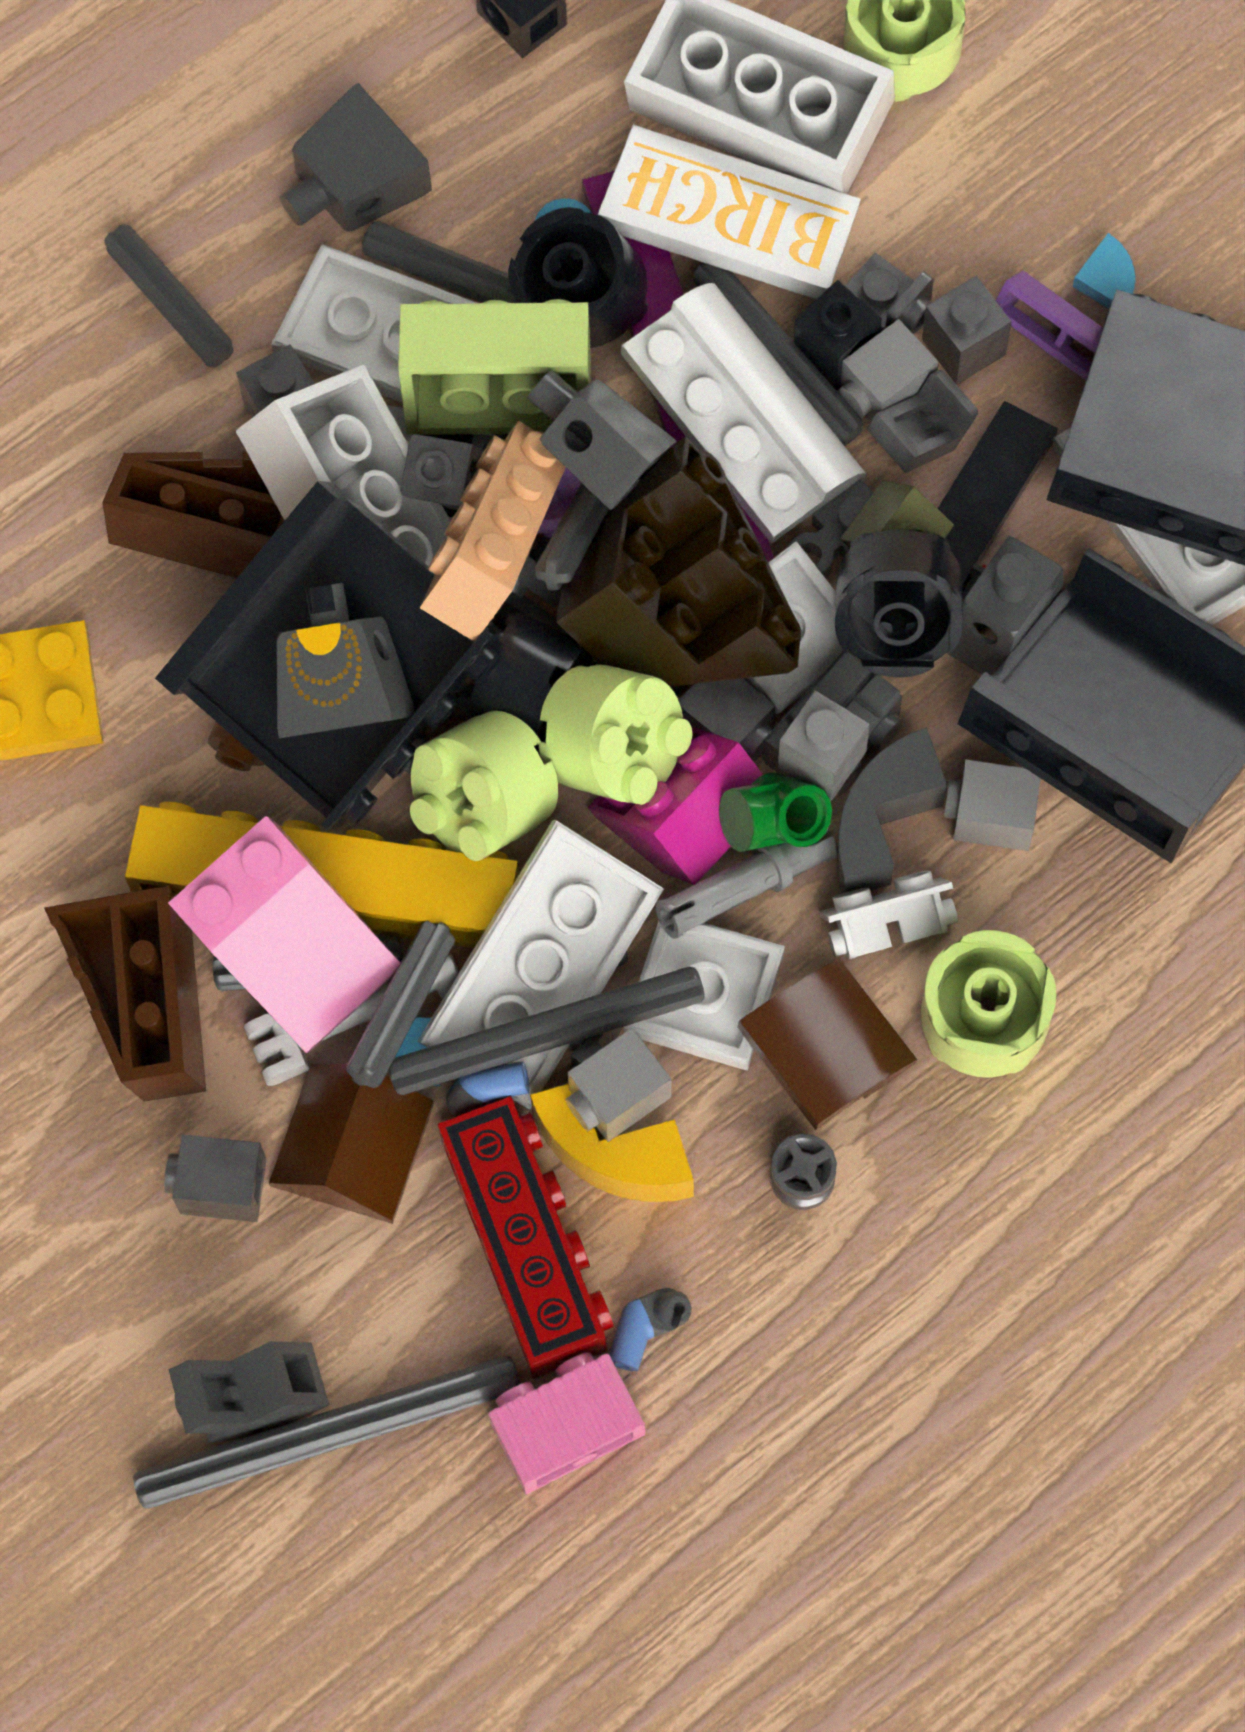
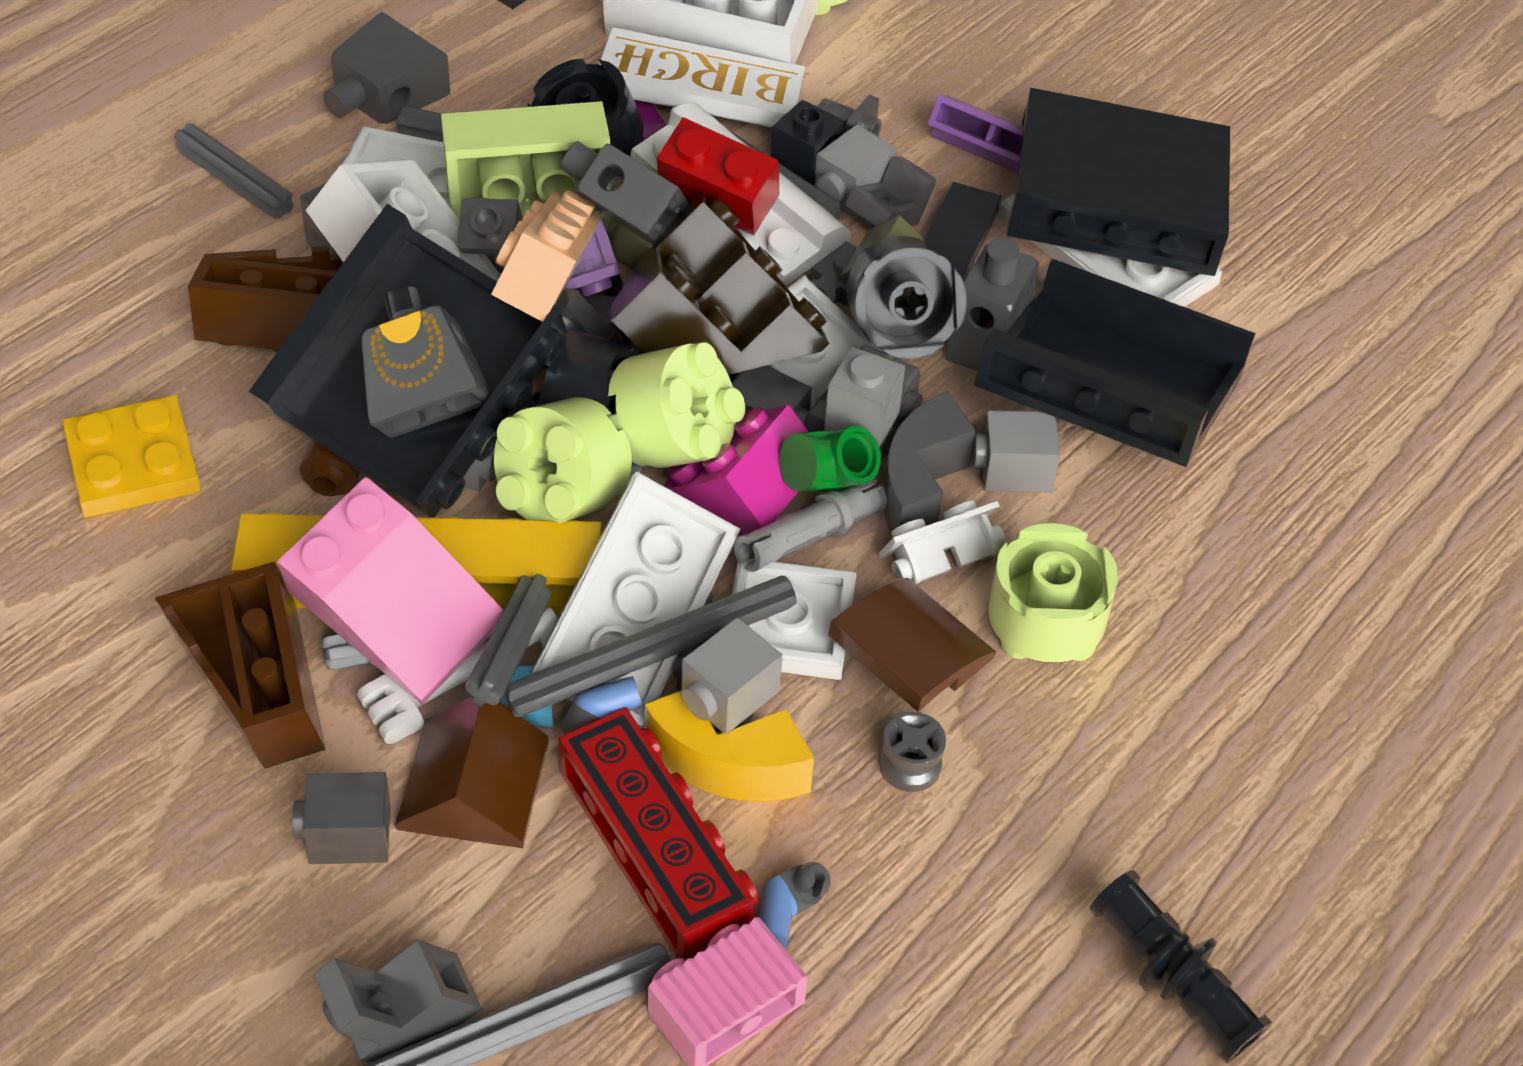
camera: 15 degrees left, 20 degrees down
(571, 539) = (616, 266): dark grey axle -> none
(710, 414) = (721, 167): none -> red brick
(966, 330) = (915, 128): flat silver brick -> none
(1020, 1456) = (1179, 966): none -> black piece
(1105, 272) = (1010, 99): medium azure tile -> none

